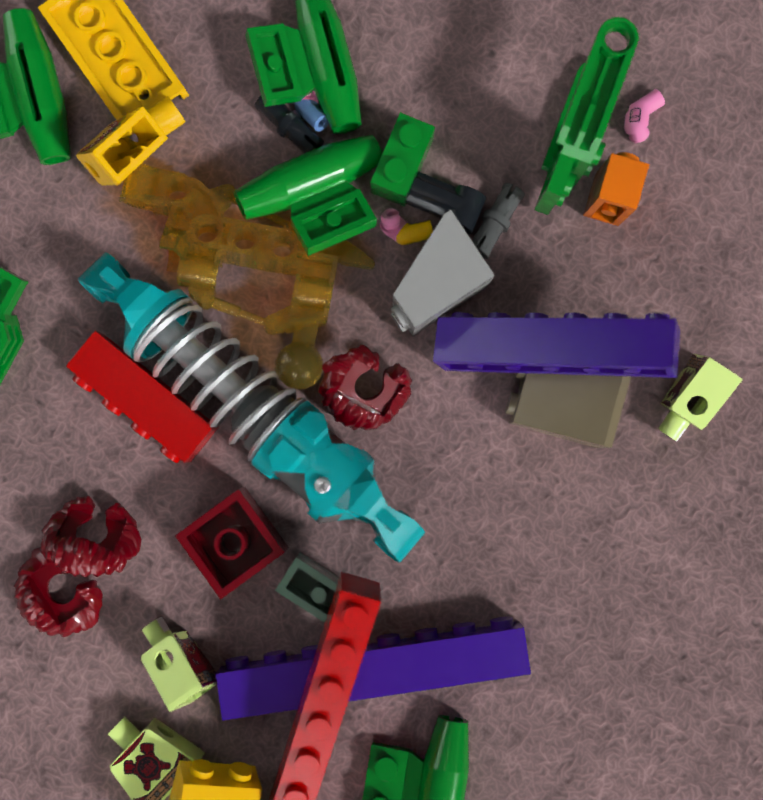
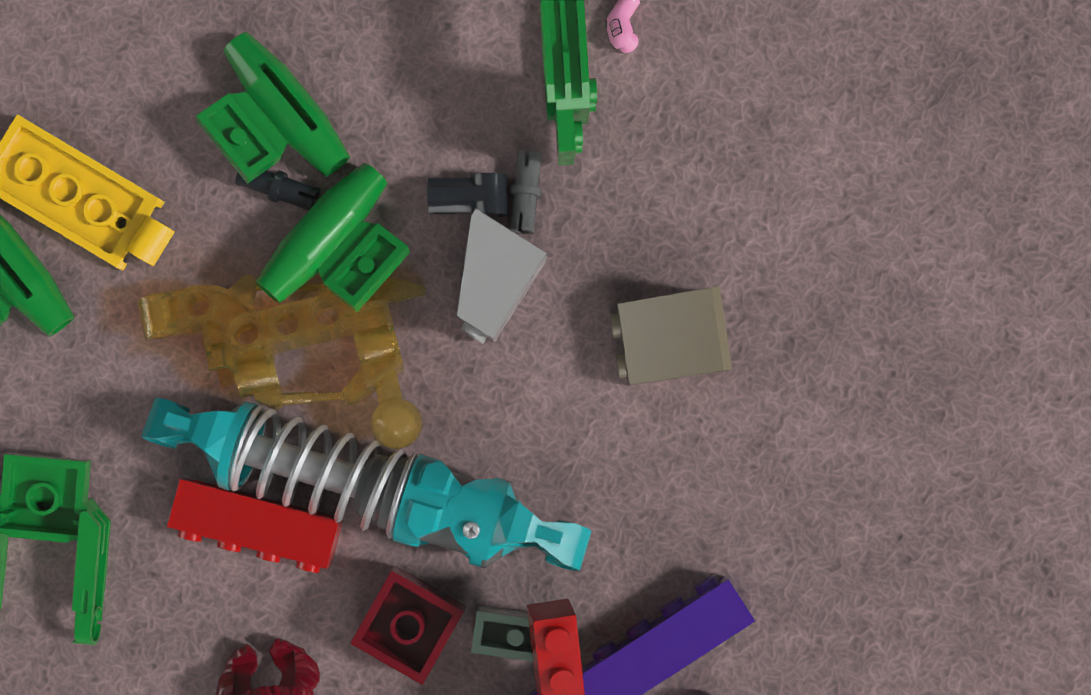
camera: 30 degrees left, 0 degrees up
(114, 155) = (124, 297): yellow torso -> none
(311, 113) = (295, 166): medium blue arm -> none
(349, 408) = (469, 442): dark red piece -> none
(401, 230) = (438, 243): arm -> none
(402, 159) = (406, 174): green brick -> none
(559, 345) = (636, 293): dark purple brick -> none
(616, 188) = (628, 111): orange brick -> none
(701, 378) = (796, 261): yellowish green torso -> none

